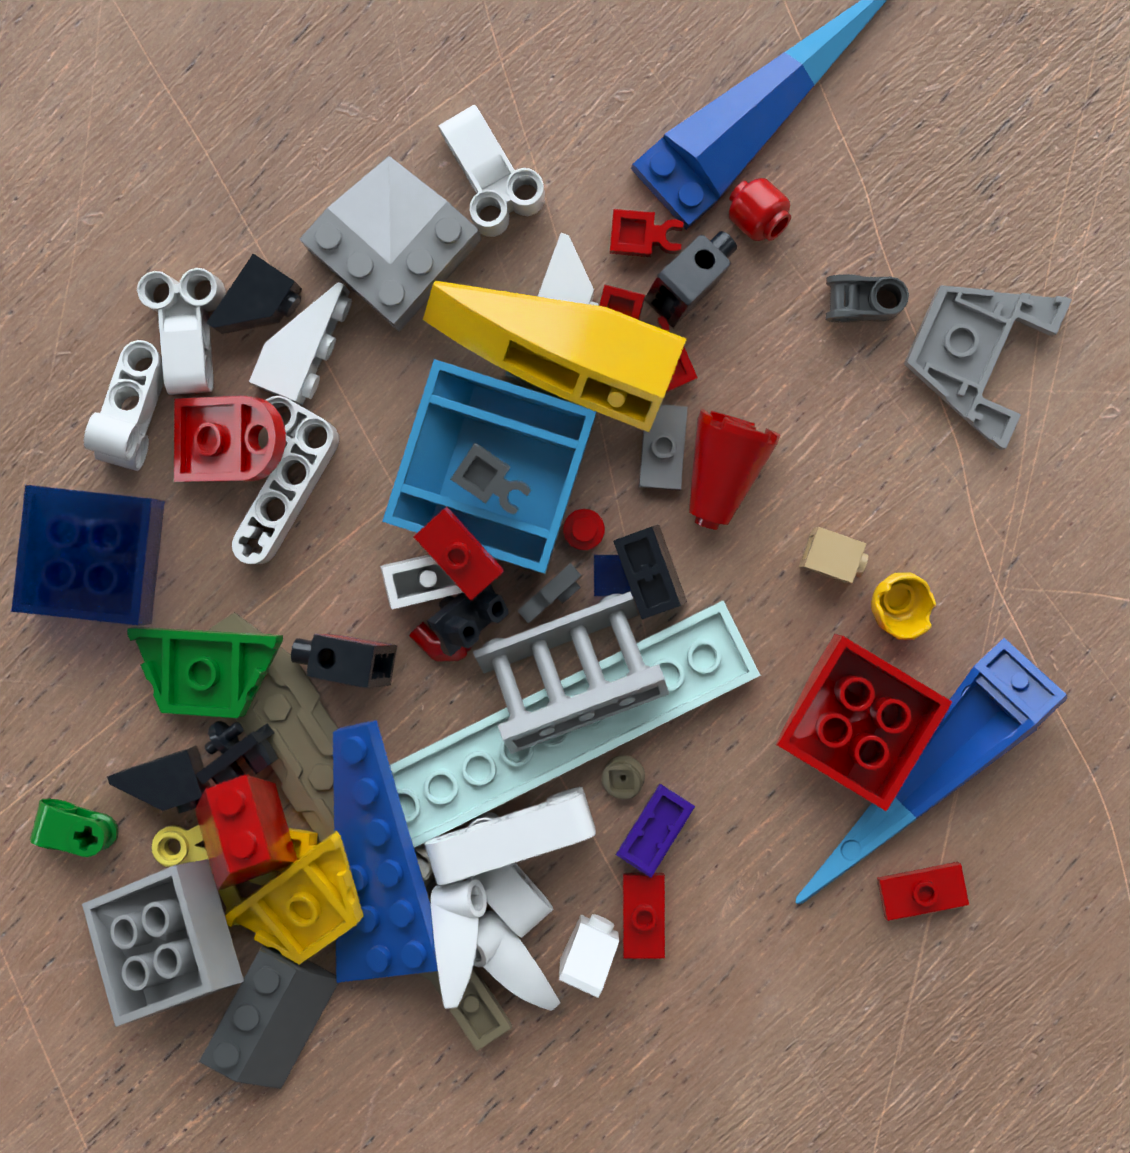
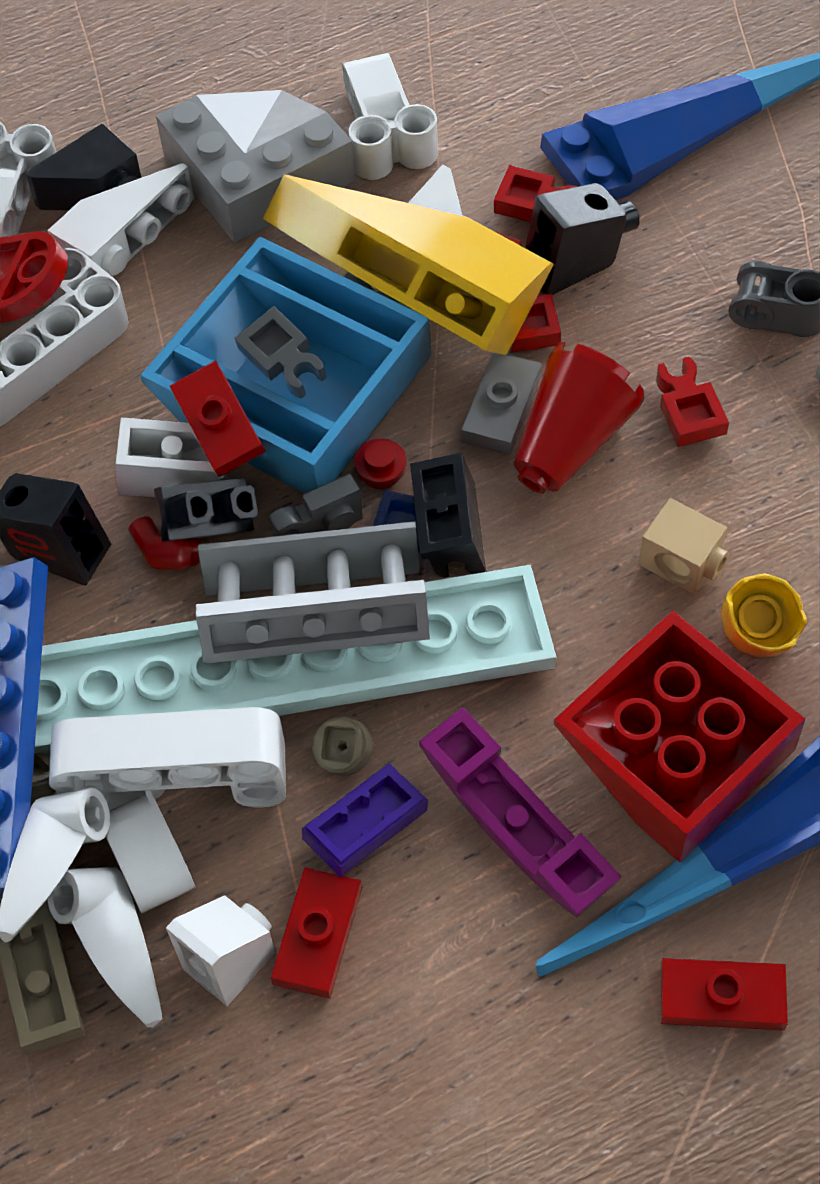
camera: 20 degrees right, 30 degrees down
(759, 209) = (674, 196): red head -> none
(761, 803) = (515, 817): none -> magenta slope
(815, 424) = (690, 409): none -> red plate

